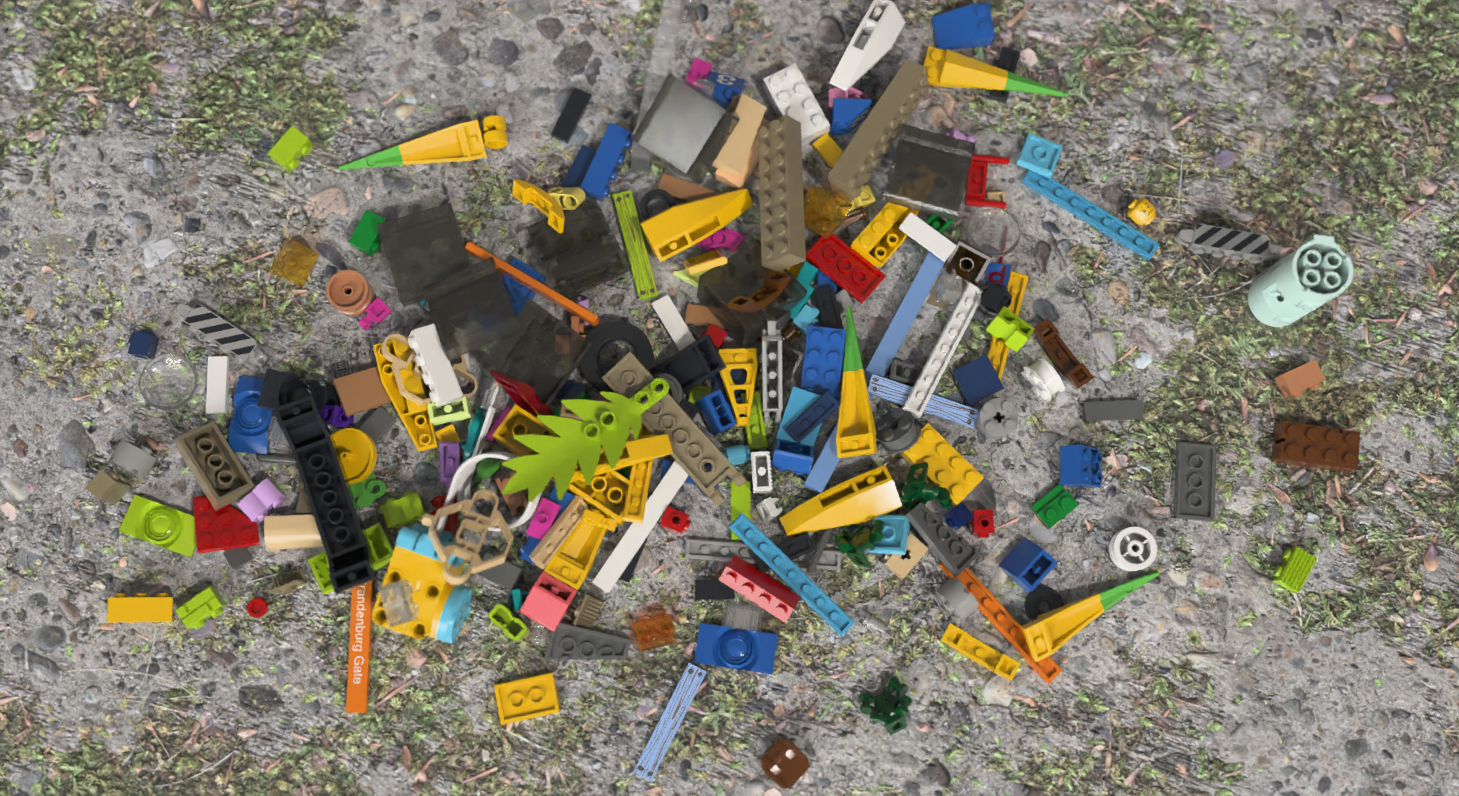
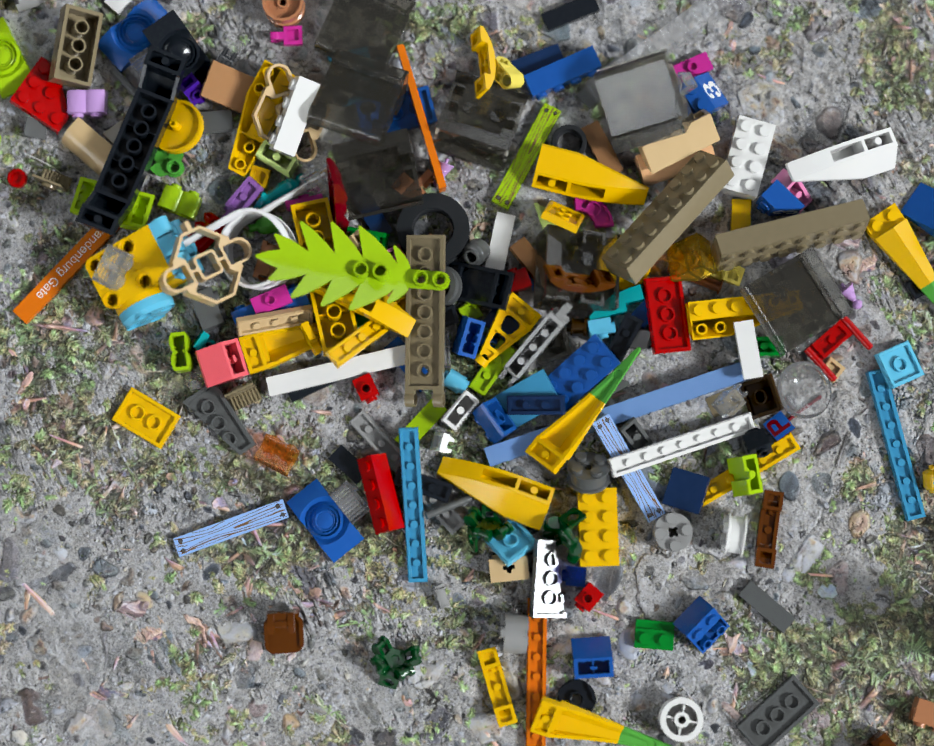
camera: 45 degrees right, 5 degrees up
(664, 345) = (476, 252): none -> dark grey head

